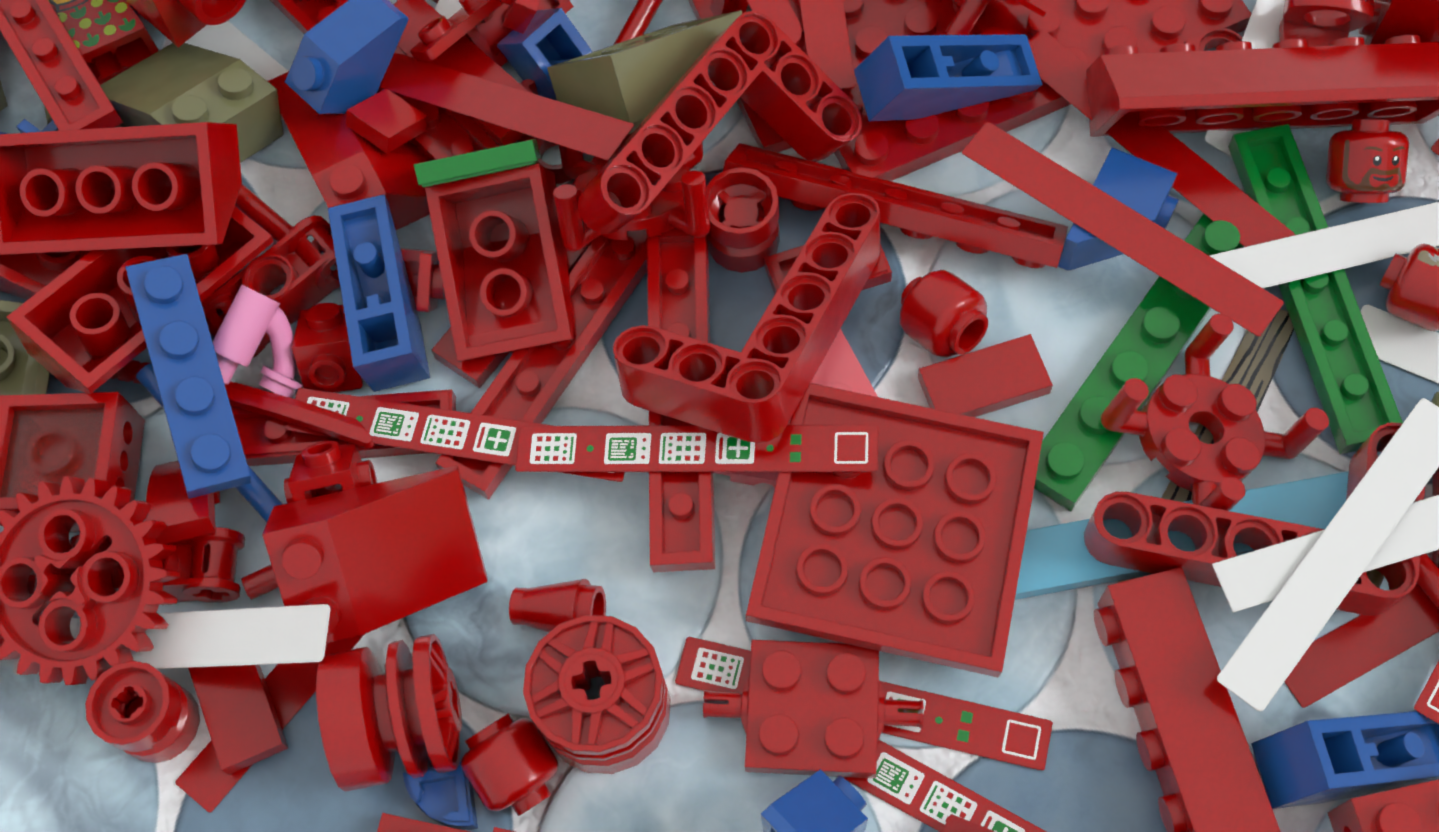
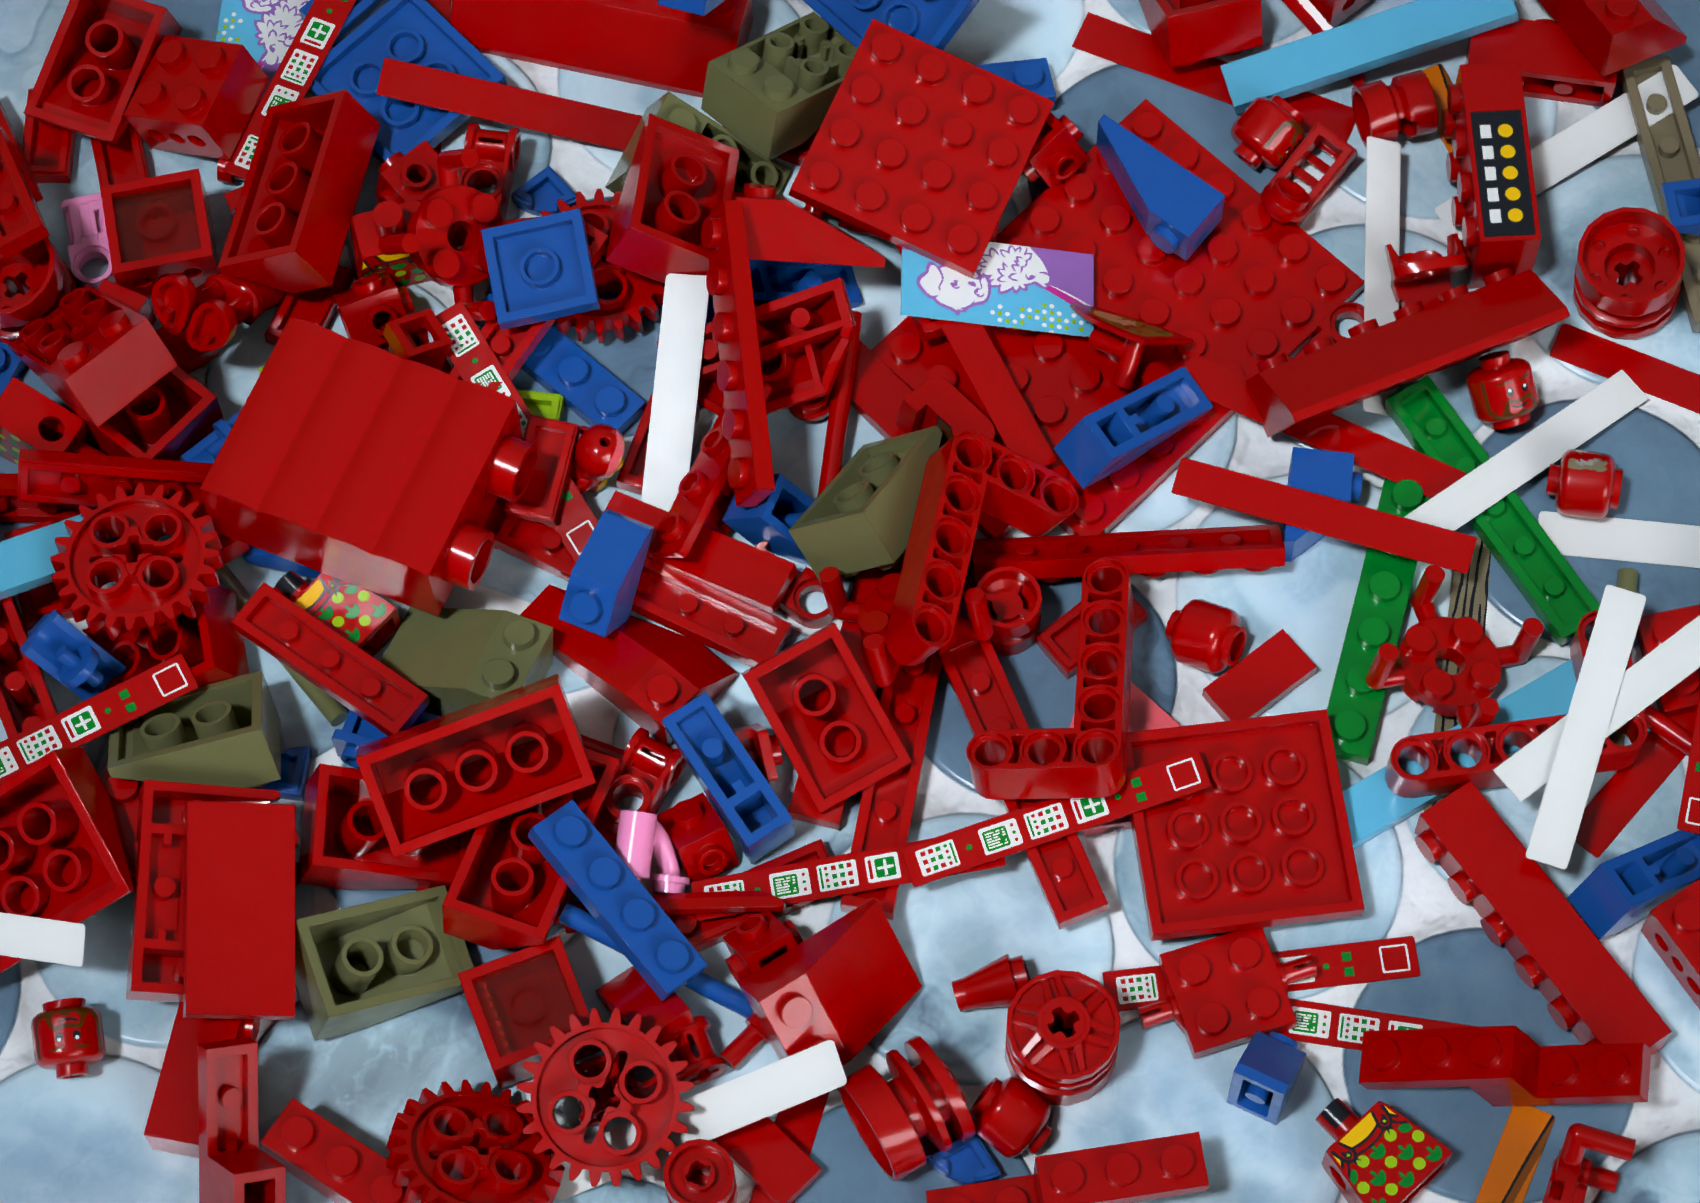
camera: 25 degrees left, 0 degrees up
(386, 120) = (662, 623): red tile -> none
(477, 163) = (774, 636): green tile -> none
(506, 106) = (774, 580): red sticker -> none

